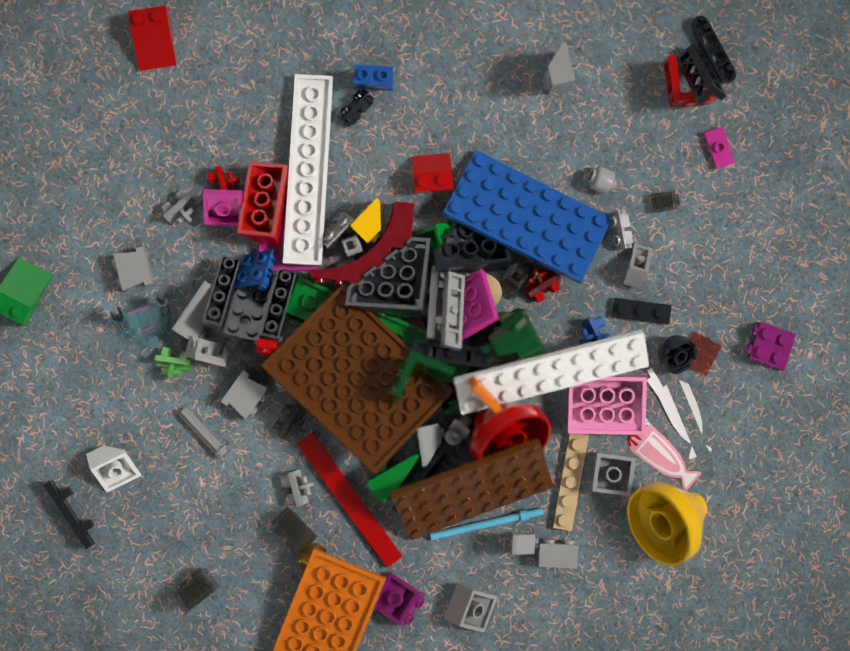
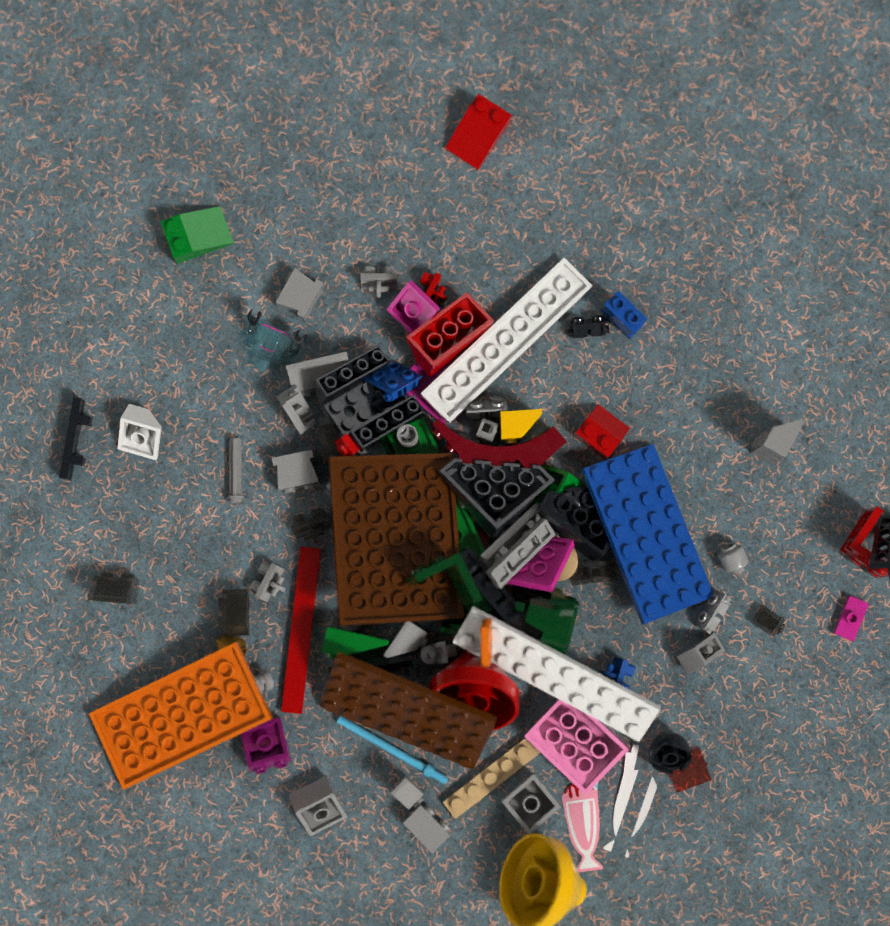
camera: 35 degrees right, 5 degrees down
(172, 365) = (260, 396): bright green hips -> none
(297, 300) = (407, 432): none -> light grey wheel
(356, 557) = (264, 681): none -> light grey wheel
(540, 282) = (610, 594): red hips -> none
(641, 311) = (671, 692): black plate -> none
(770, 345) = (751, 816): magenta plate -> none

